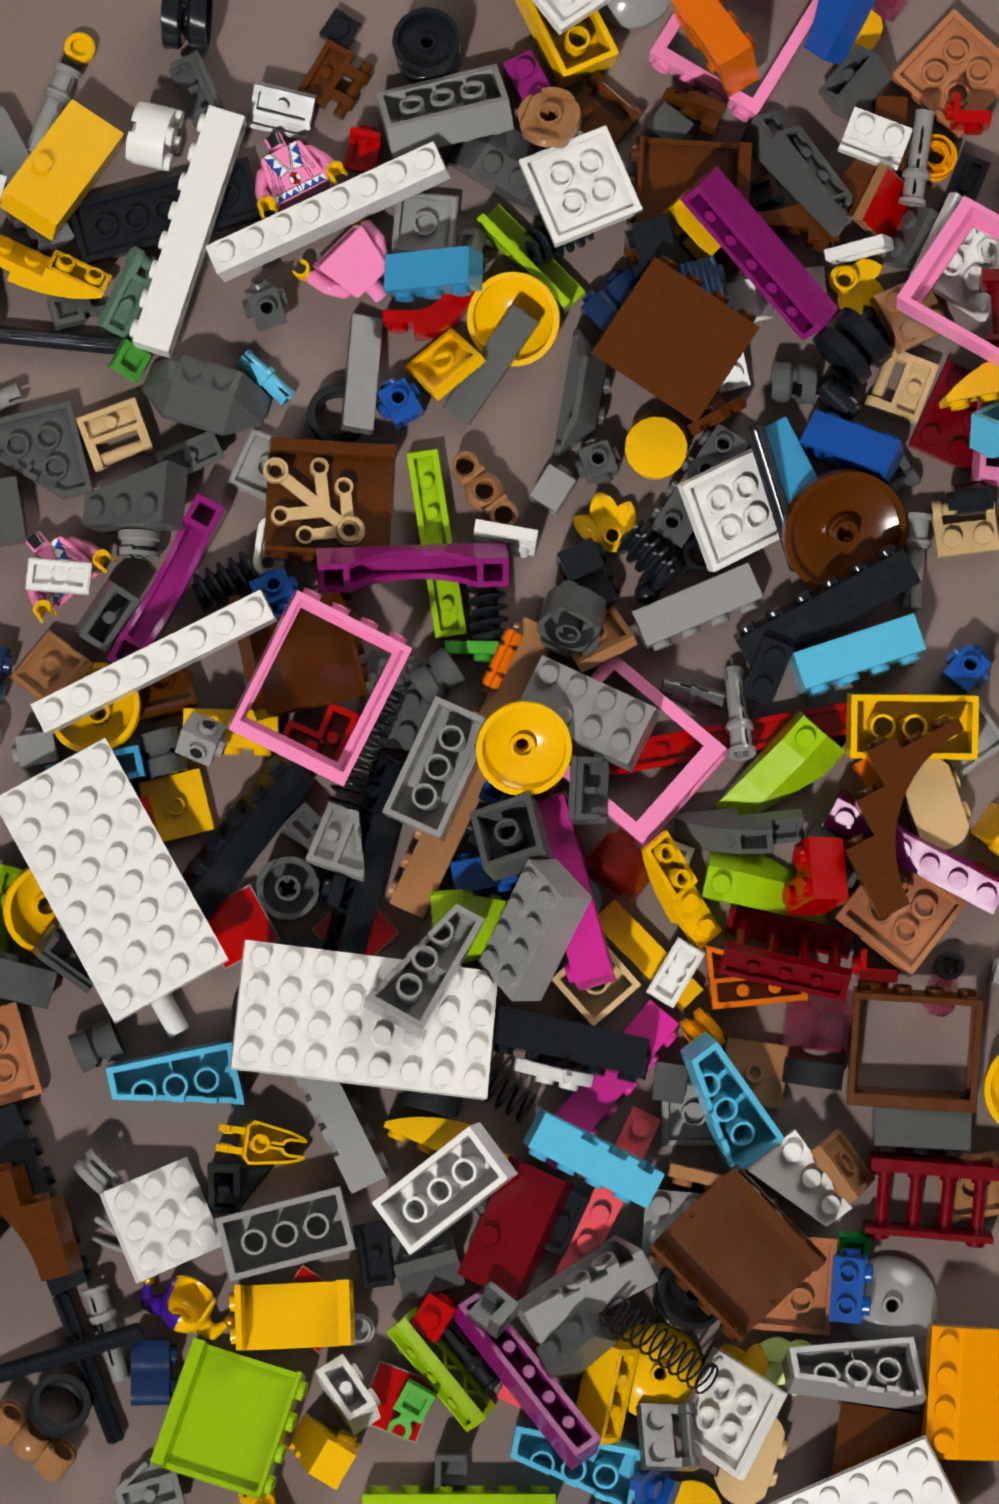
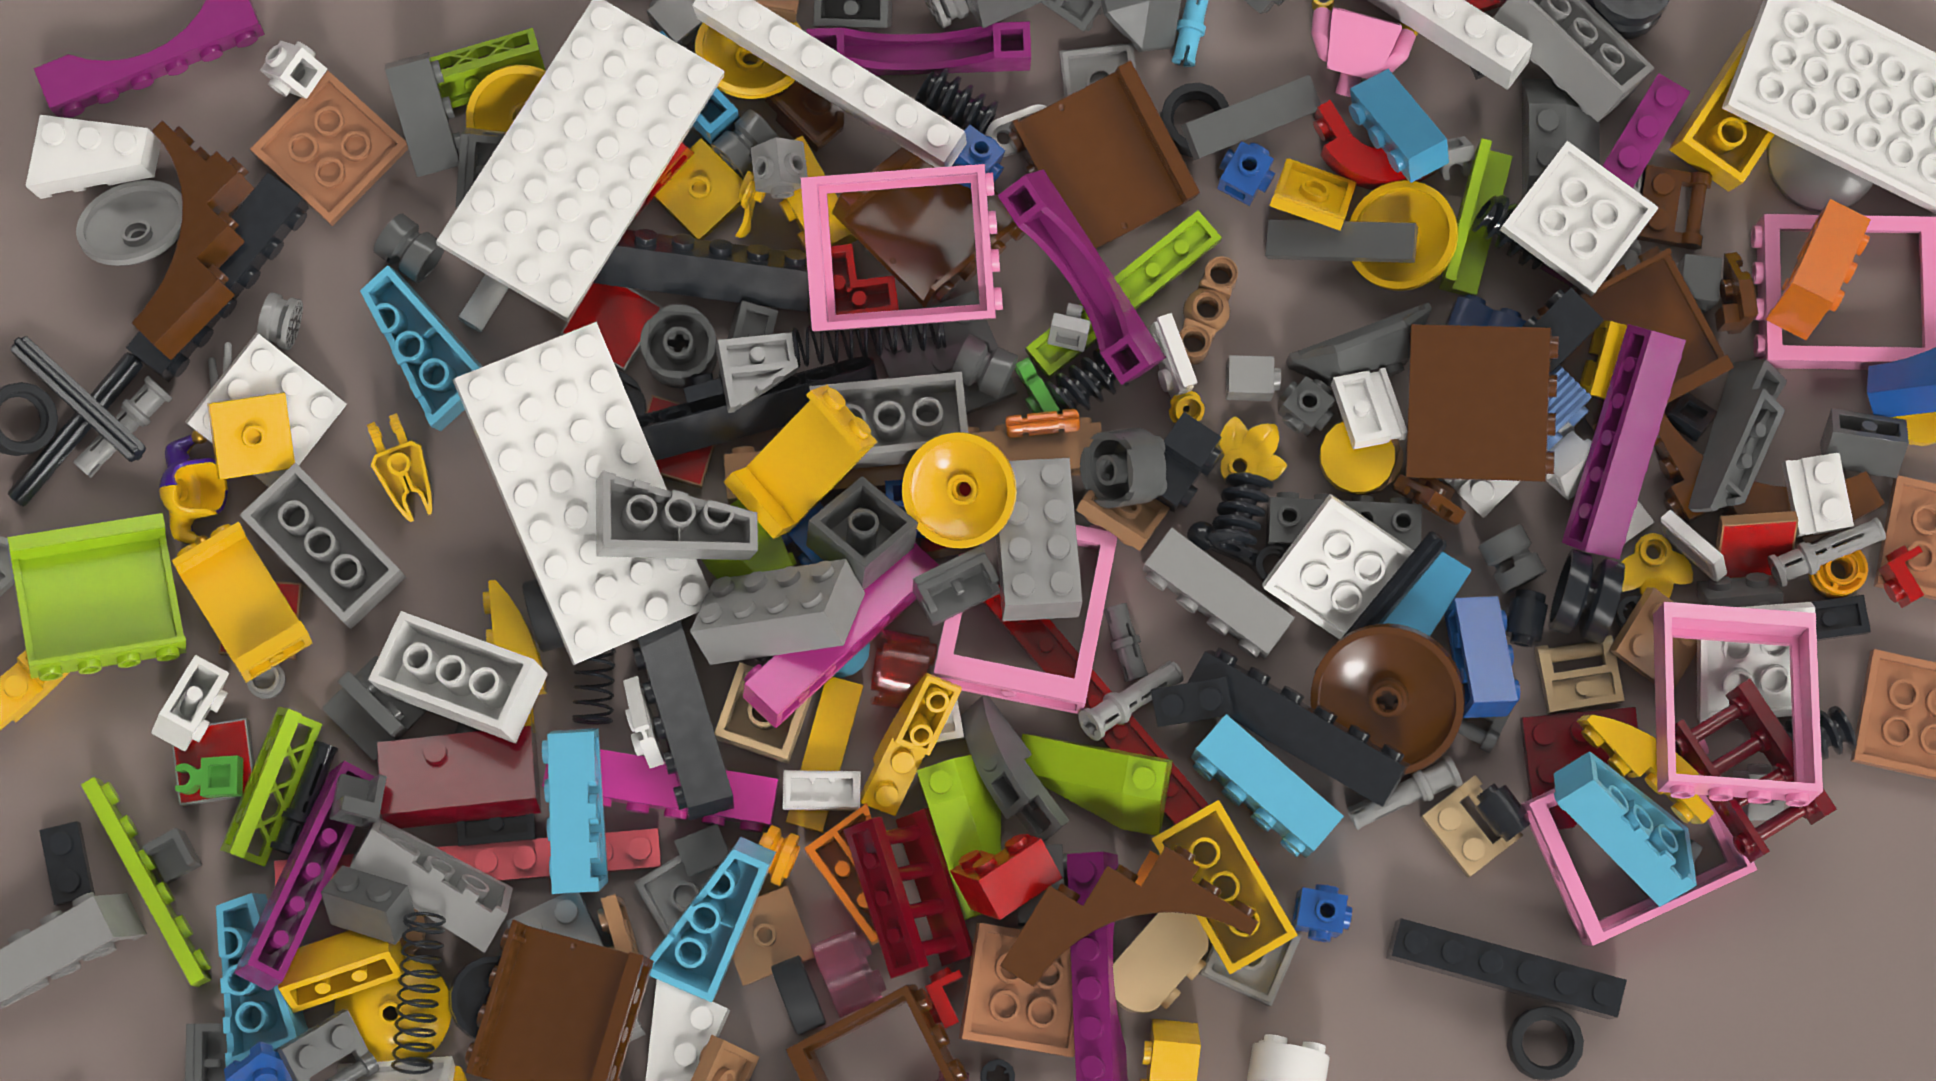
camera: 55 degrees right, 5 degrees down
(151, 1371) = (106, 492): dark blue brick -> none
(175, 1240) = (251, 435): none -> yellow plate
(204, 772) = (748, 198): none -> yellow plate
(233, 1184) = (344, 465): black slope -> none
(317, 505) = (1091, 150): tan plant -> none
(323, 1449) = (117, 714): yellow wedge -> none
(345, 1132) = (461, 548): light grey wedge -> none
(374, 1255) = (350, 649): black plate -> none
(425, 223) = (1449, 94): light grey tile -> none
(434, 1316) = (321, 746): red bracket -> none
(436, 850) = (802, 462): none -> yellow panel
(443, 598) = (1069, 329): none -> light grey tile
(554, 544) = (1193, 400): none -> yellow plate
(555, 132) = (1621, 162): medium nougat plate -> none
(628, 419) = (1369, 408): none -> white plate

